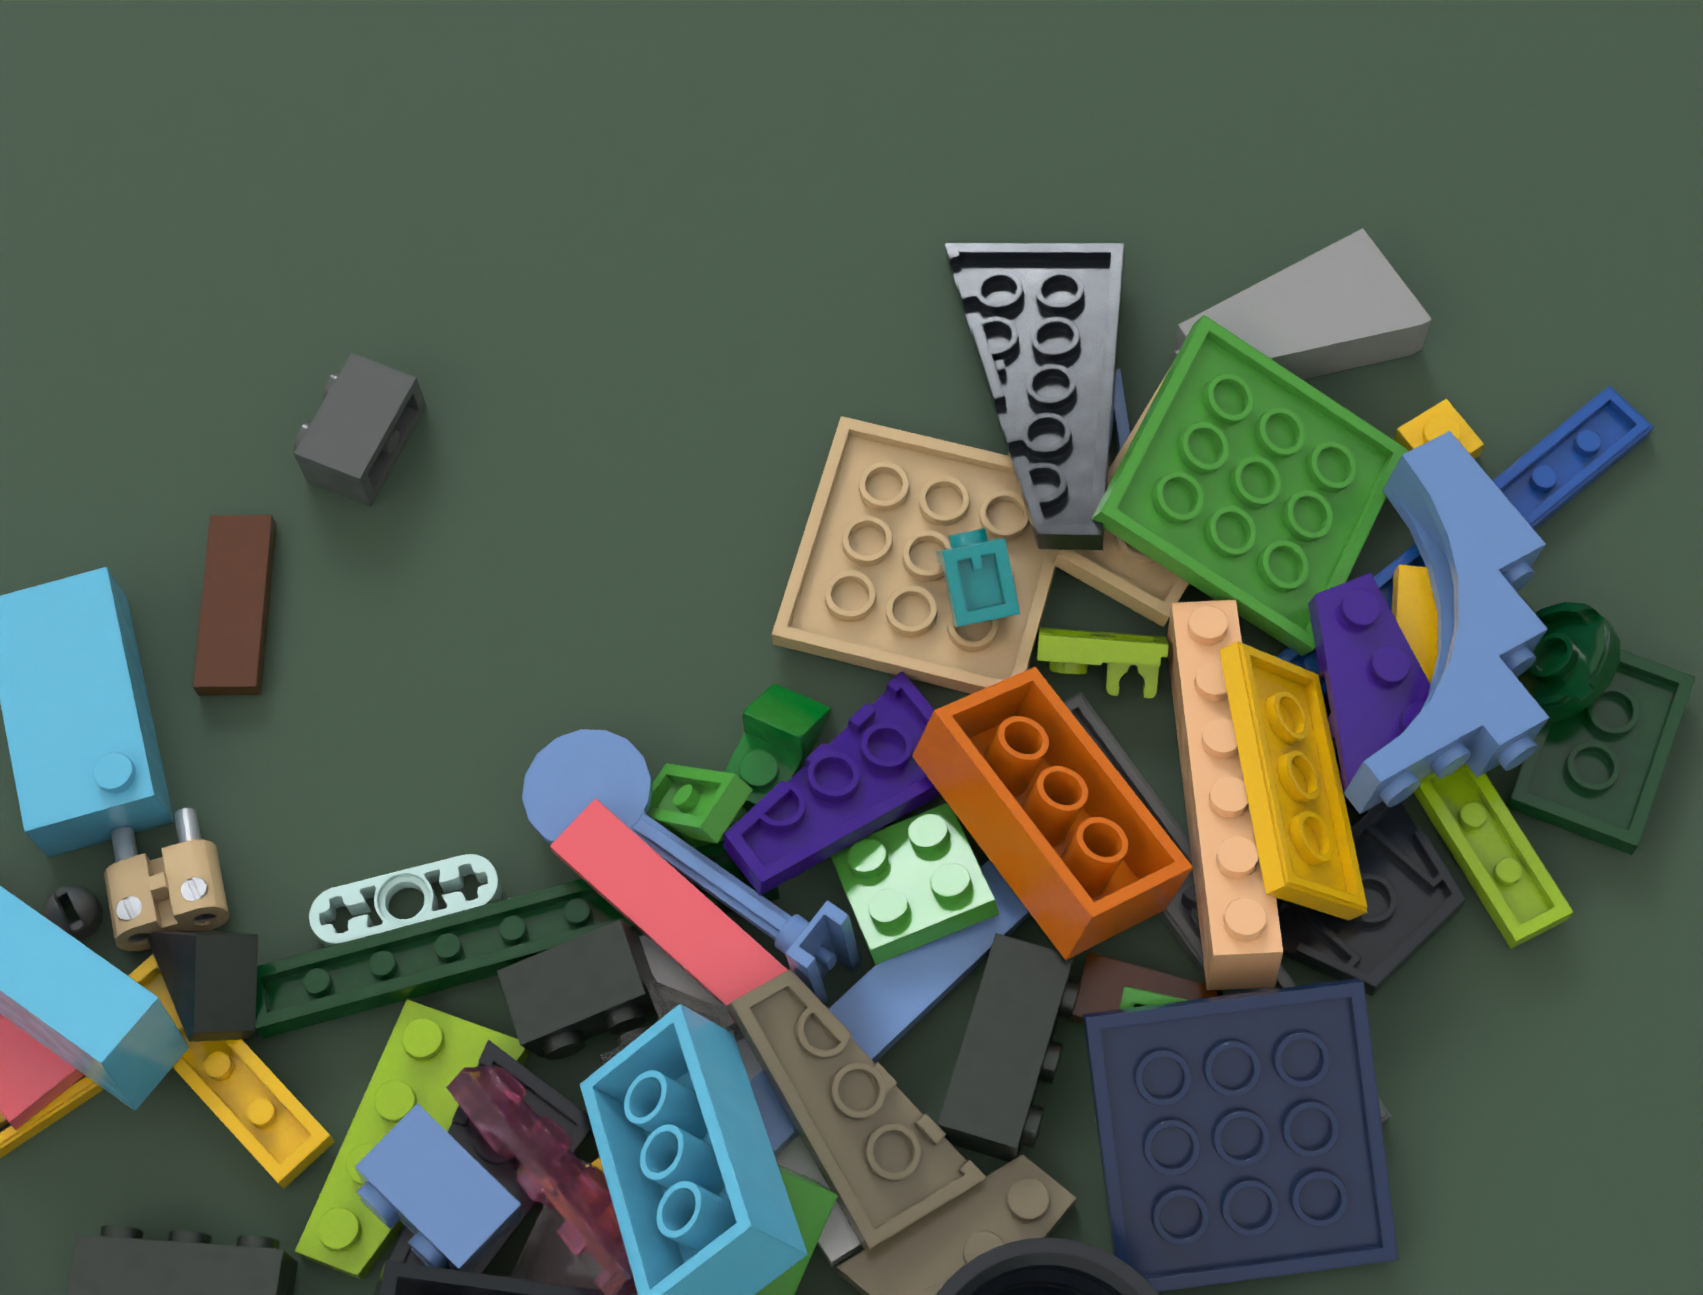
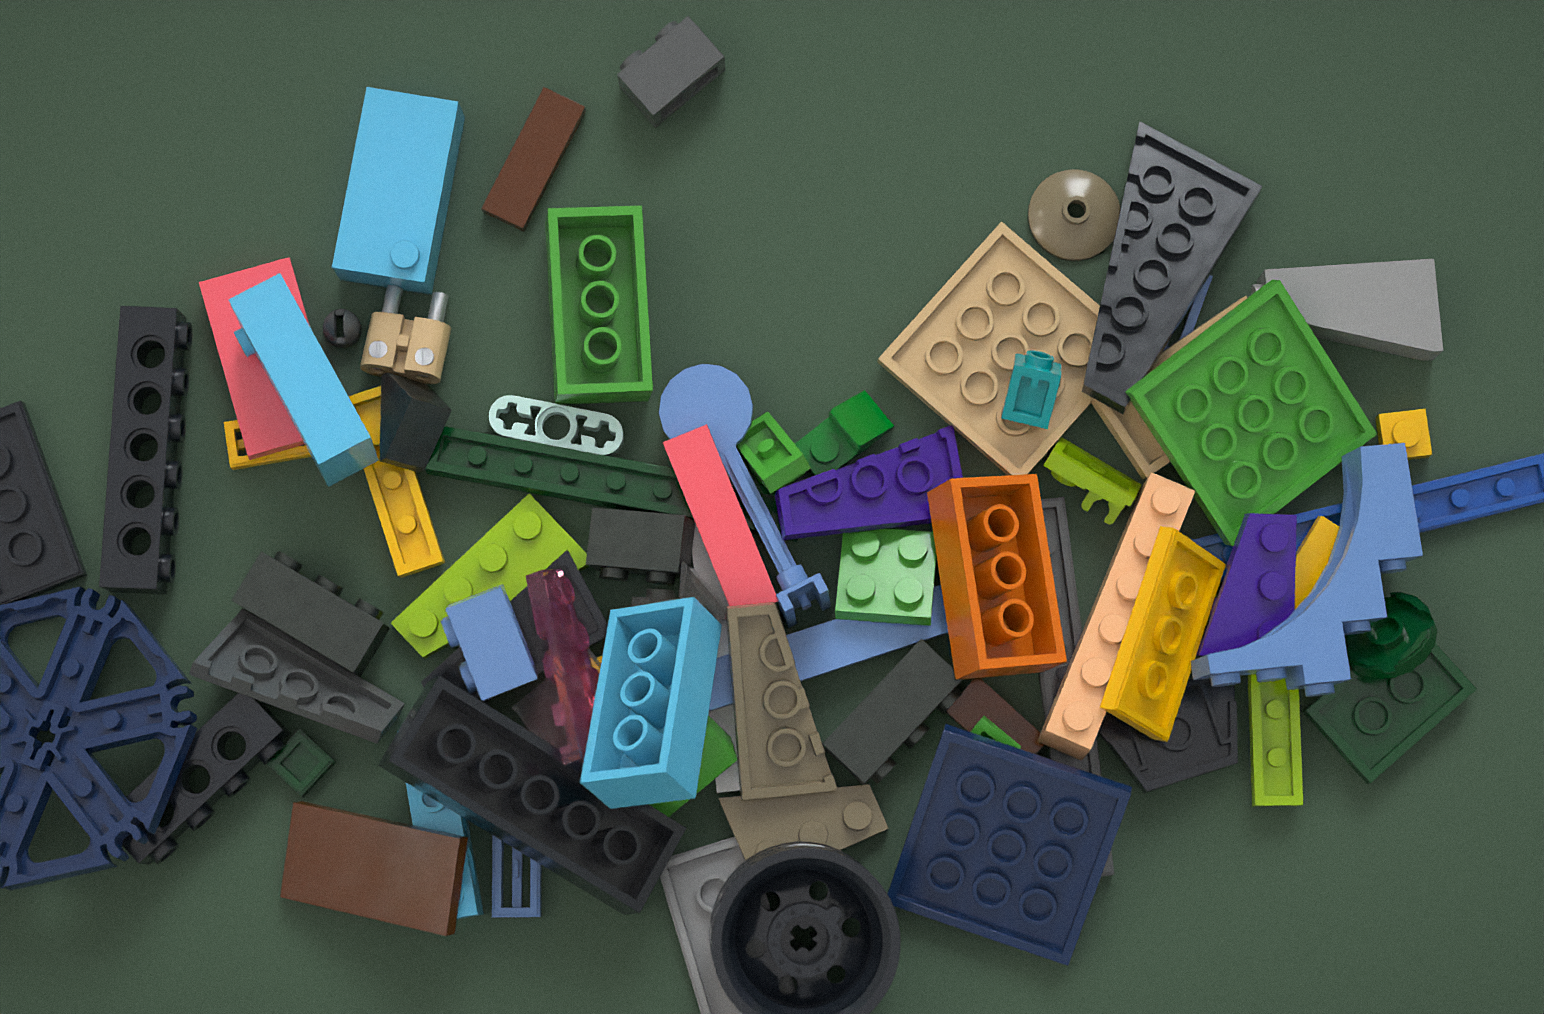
camera: 25 degrees right, 15 degrees up
(393, 729) = (598, 305): none -> bright green brick
(922, 401) = (1069, 236): none -> dark tan dish

